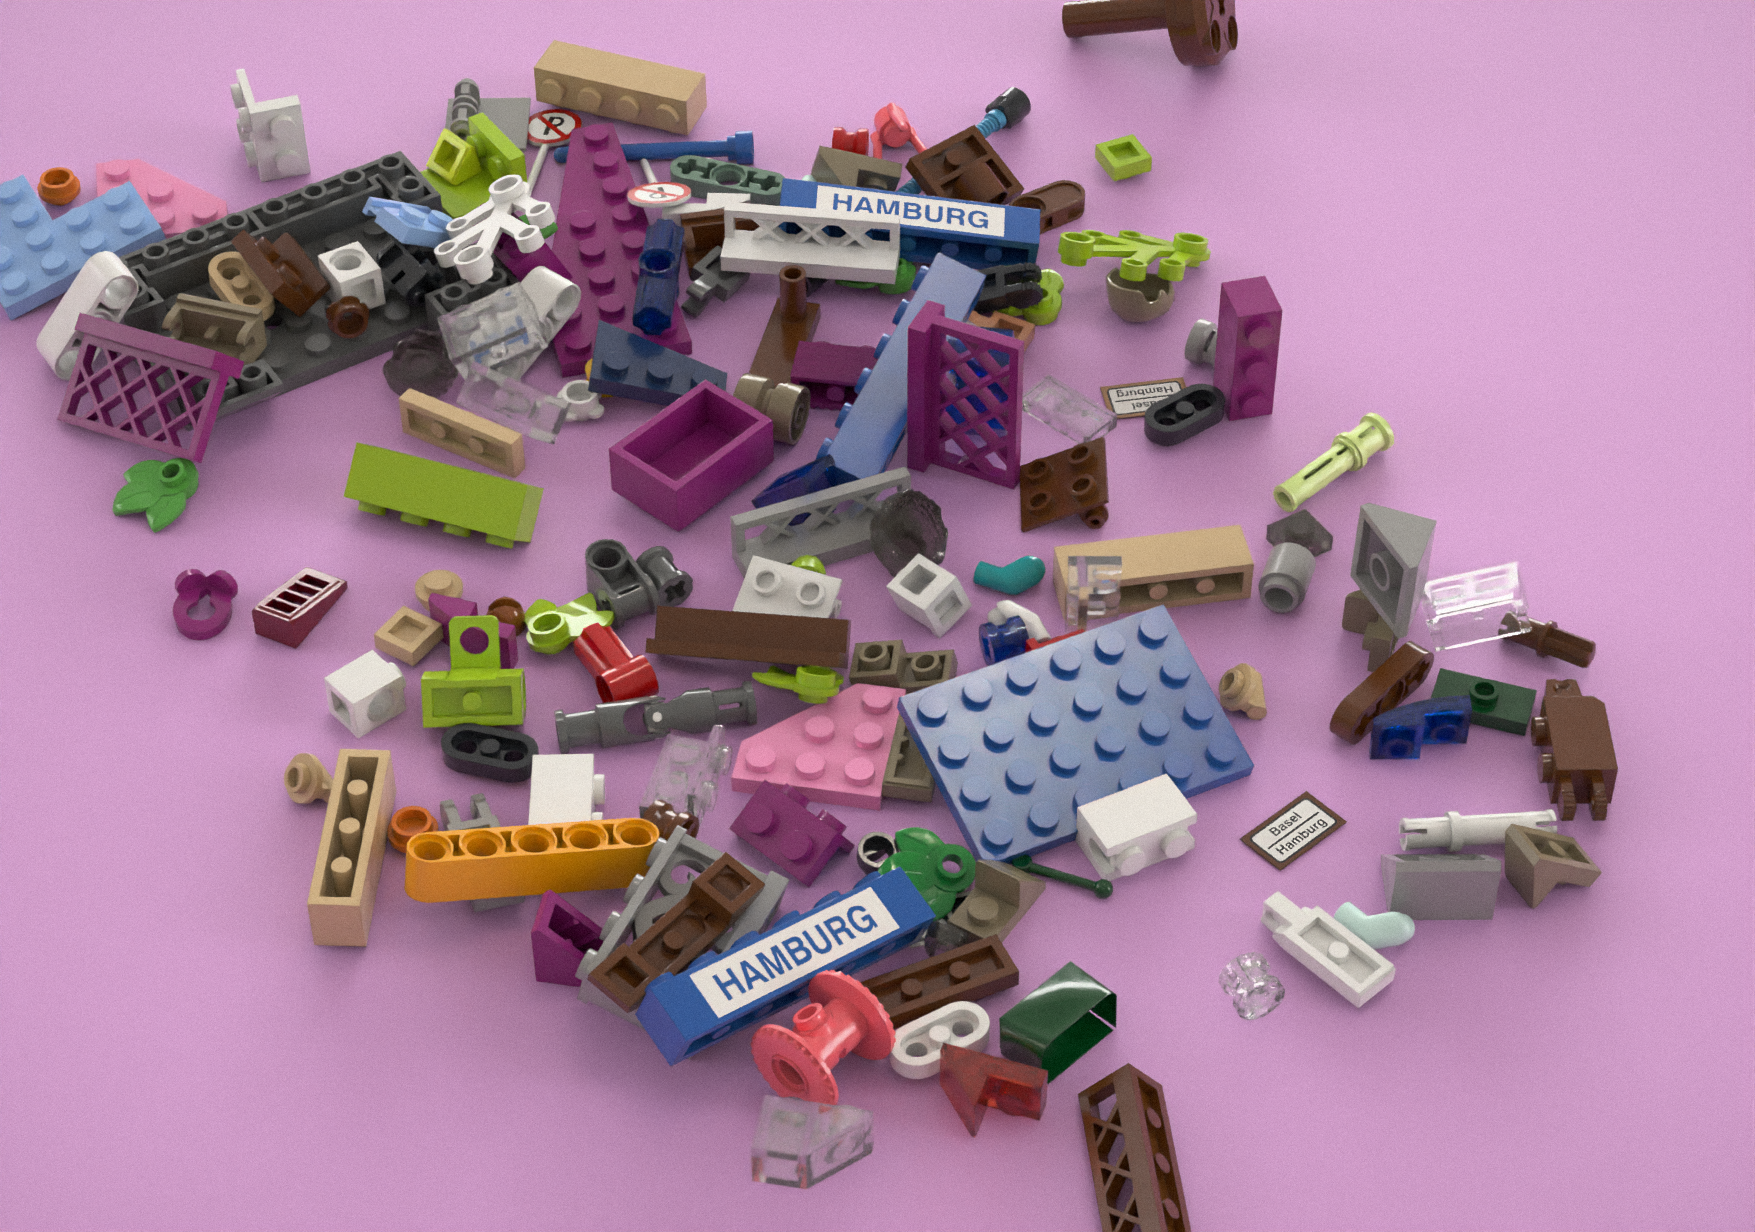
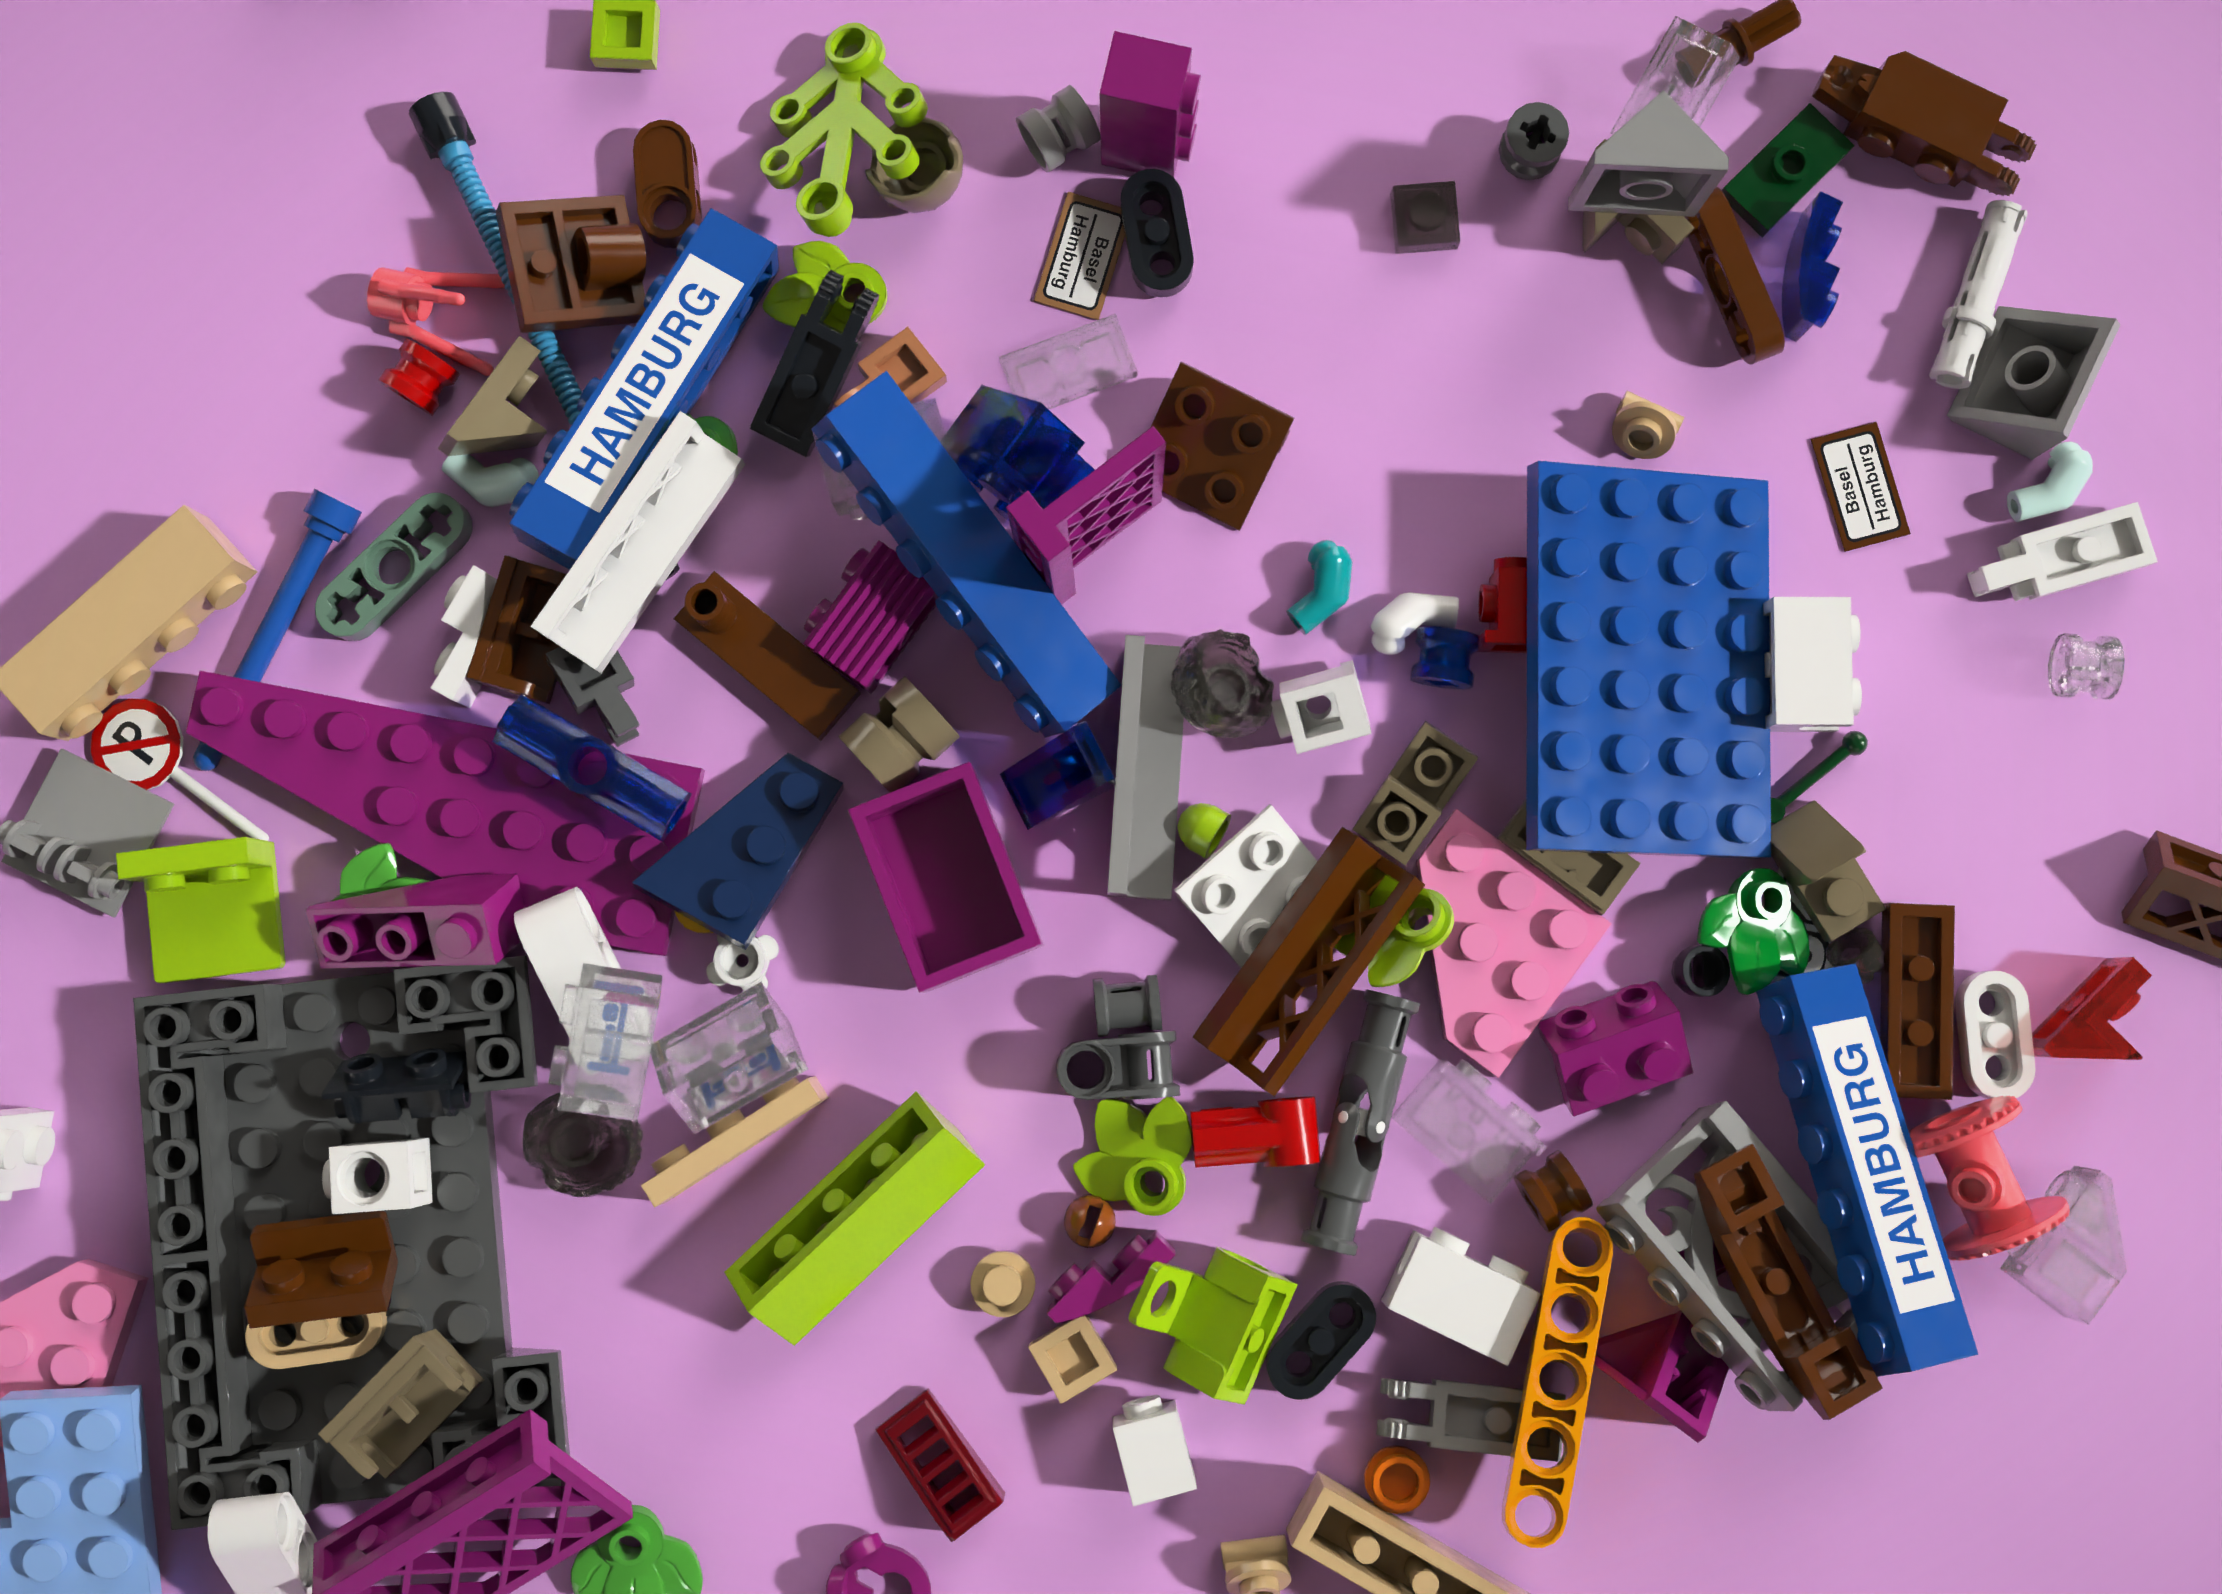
camera: 60 degrees left, 40 degrees up
(351, 325) = (450, 1208): reddish brown plate -> none
(409, 222) = (323, 1052): light blue plate -> none
(453, 158) = (167, 924): neon yellow slope -> none
(507, 196) = (413, 961): white plant -> none
(656, 193) = (403, 686): white piece -> none
(1054, 1021) = (2044, 901): dark green piece -> none
(1092, 591) = (1463, 546): clear hinge -> none
(1170, 568) = (1414, 424): tan brick -> none
(1286, 577) = (1500, 274): light grey brick -> none
(1347, 452) = (1326, 82): yellowish green pin -> none
(1542, 859) = (2079, 252): dark tan slope -> none

